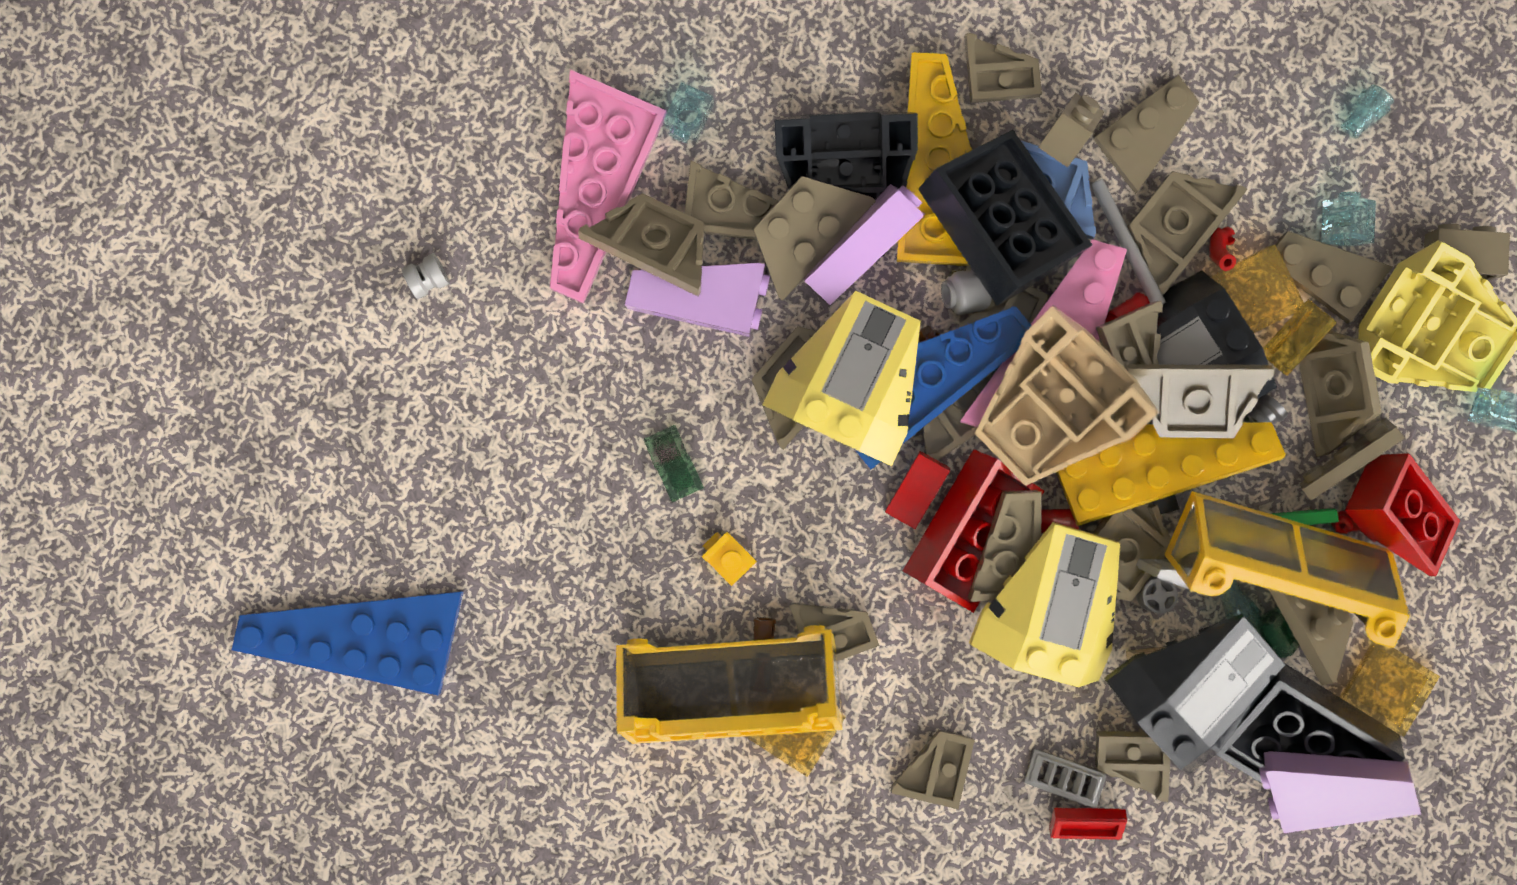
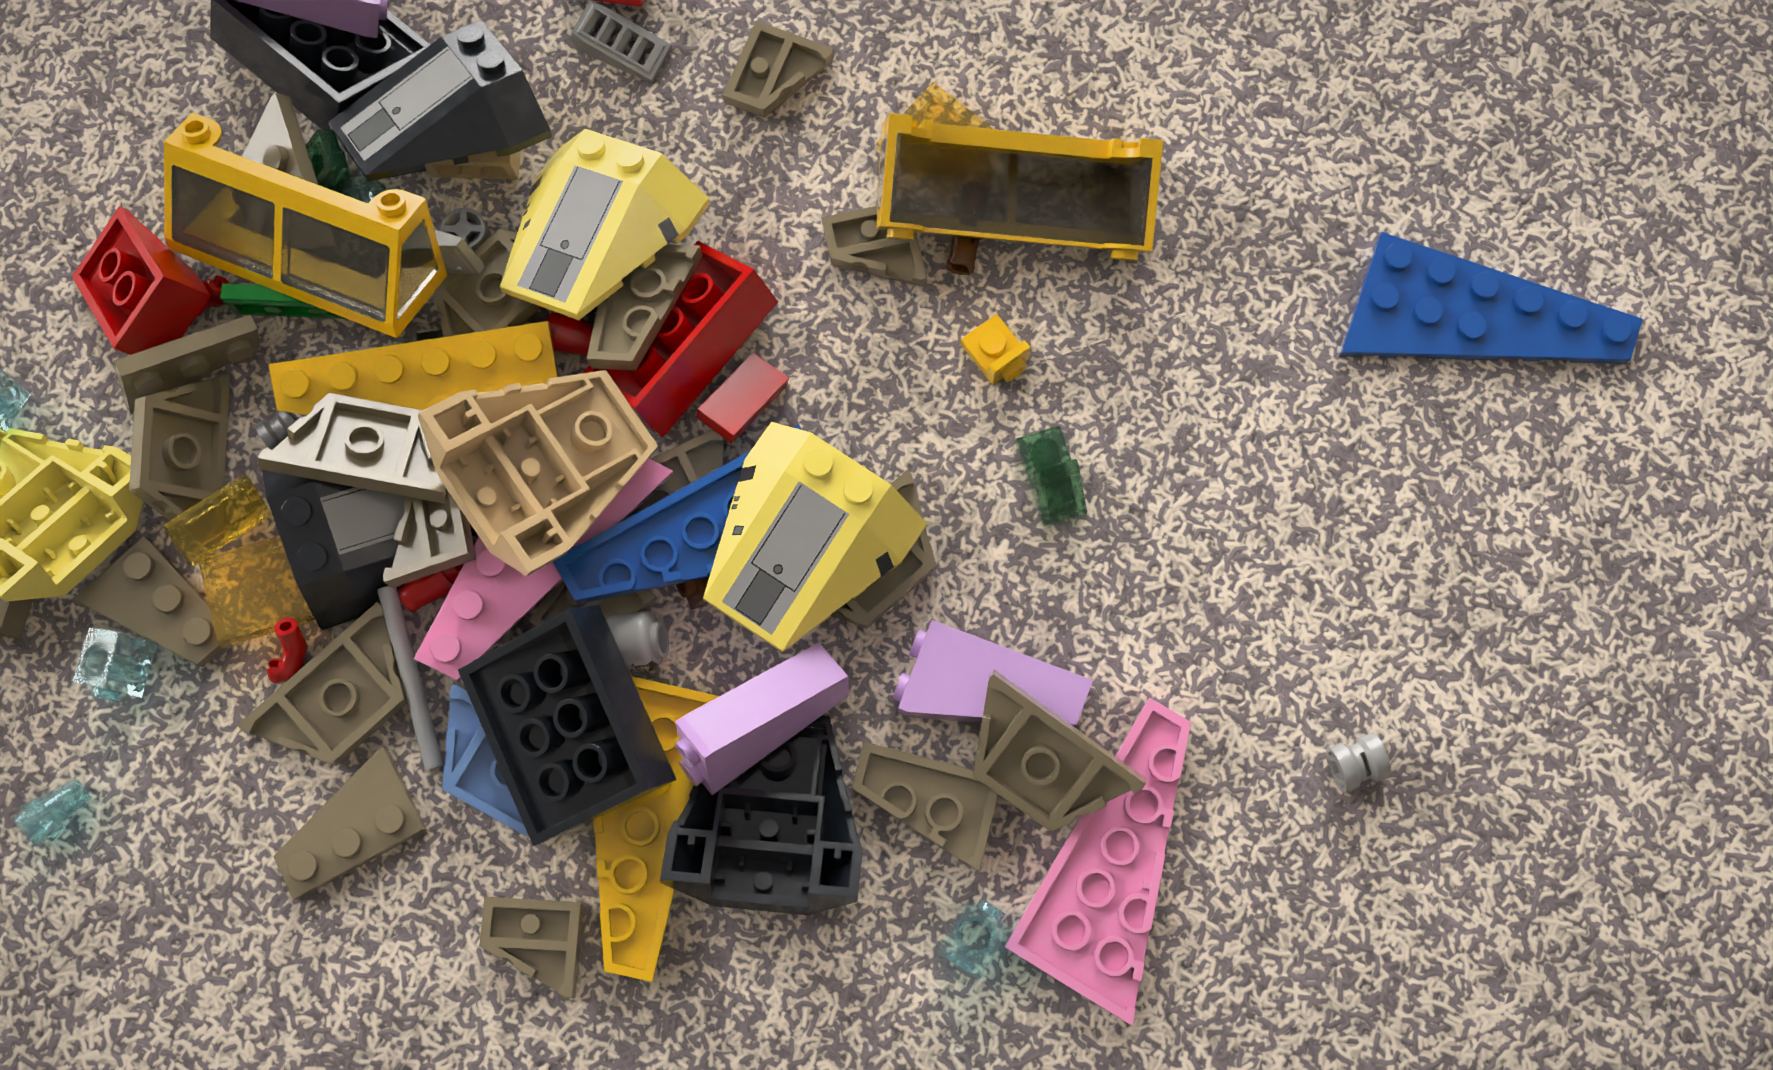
camera: 170 degrees left, 10 degrees down
(805, 228) = (835, 751): dark tan wing -> none
(1072, 129) = (453, 832): dark tan brick -> none
(1134, 760) = (537, 49): dark tan wing -> none
(1389, 687) = (212, 87): clear yellow tile -> none

